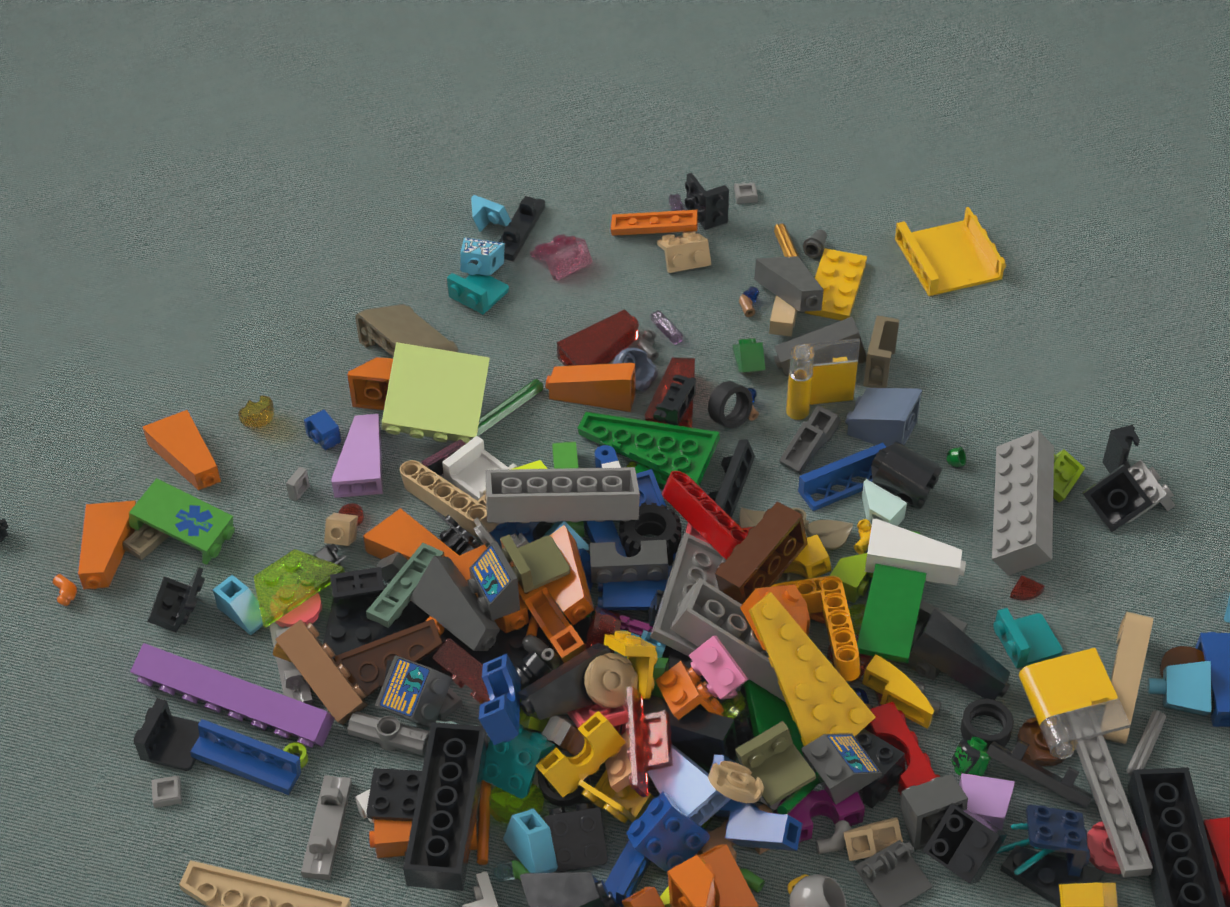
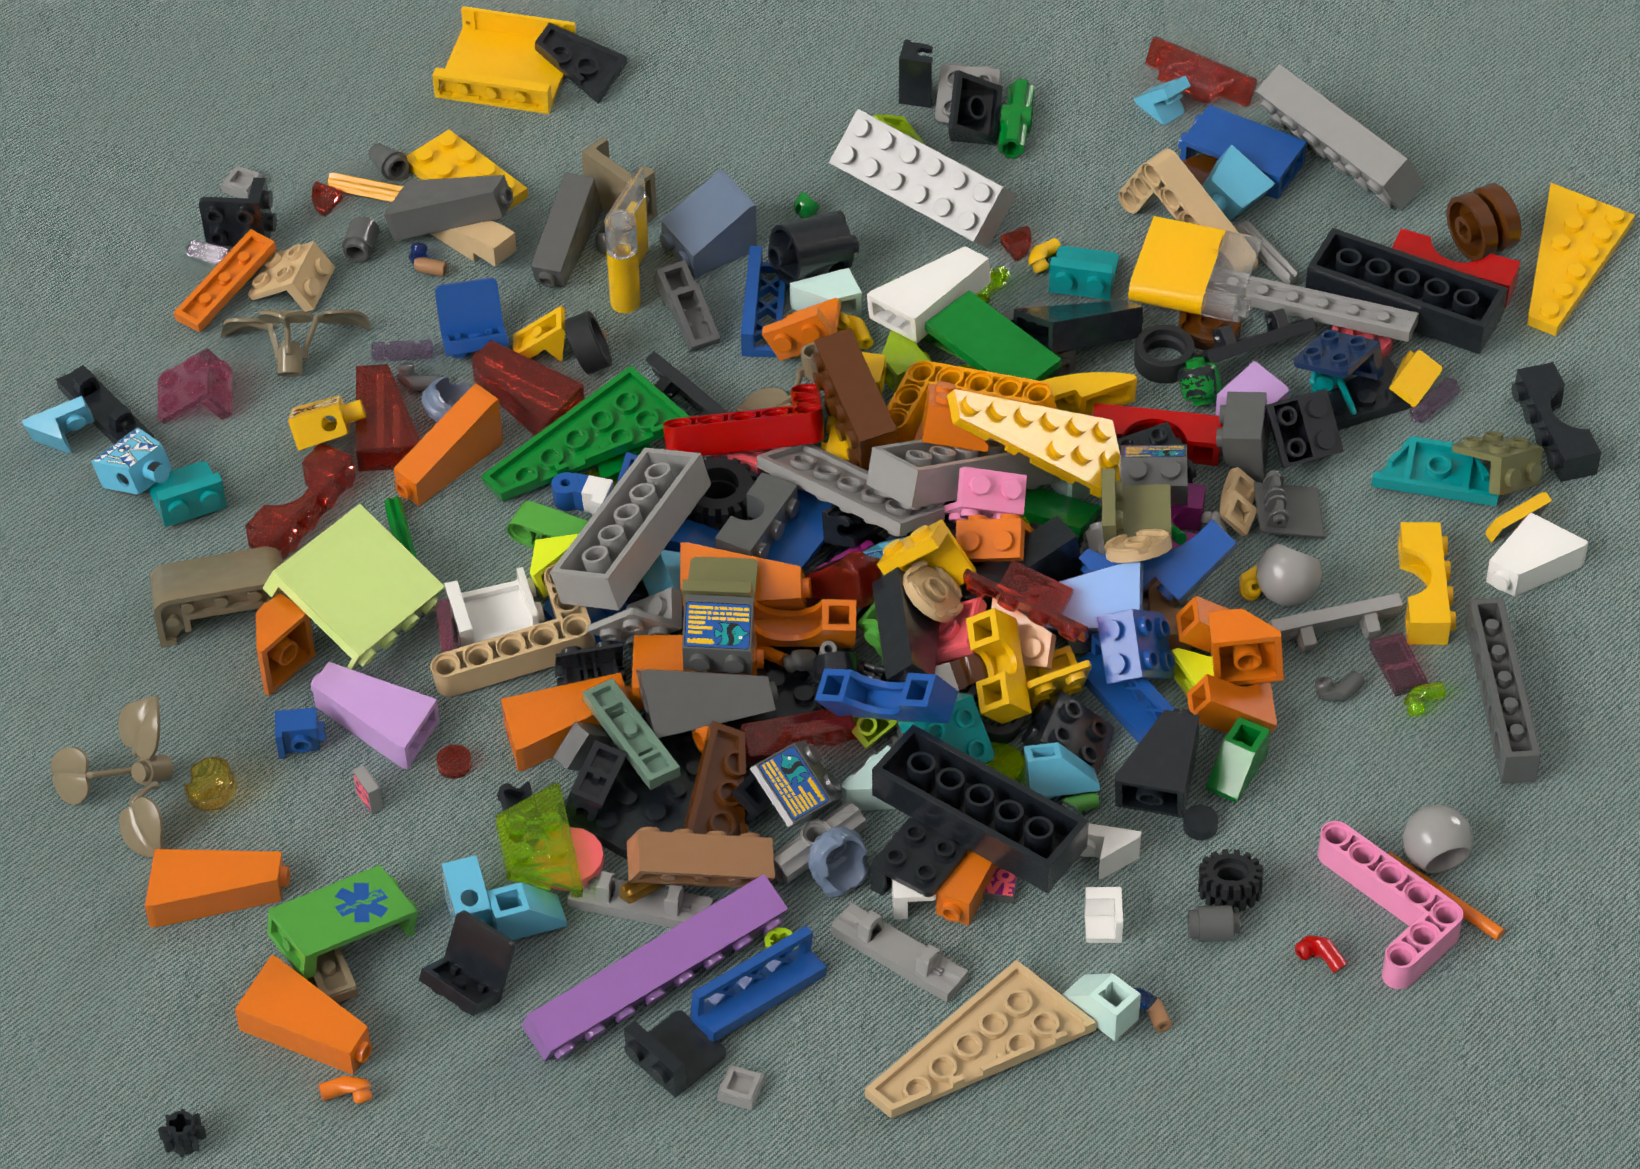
camera: 60 degrees left, 0 degrees up
(230, 561) = (466, 889): none -> medium azure torso
(250, 378) = (140, 729): none -> dark tan plant
(341, 529) = (482, 770): tan brick -> none
(371, 749) = (838, 861): none -> sand blue hair
(531, 344) = (283, 526): none -> clear red arch
(574, 317) = (312, 427): none -> yellow torso
(616, 277) = (290, 354): none -> dark tan plant
(676, 400) = (550, 380): black hinge -> none
(708, 341) = (469, 316): none -> blue bracket
(720, 376) = (543, 334): none -> yellow slope
(739, 262) = (360, 239): none -> dark grey brick
(749, 355) = (523, 295): green slope -> none
(764, 233) = (325, 198): none -> clear red tile
(831, 510) = (801, 328): none -> orange bracket
(970, 589) = (998, 279): none -> clear neon green arm
(982, 285) = (581, 60): none -> black wing
(1024, 605) = (1039, 254): none -> yellow arm
(1141, 530) = (1016, 118): none -> green piece

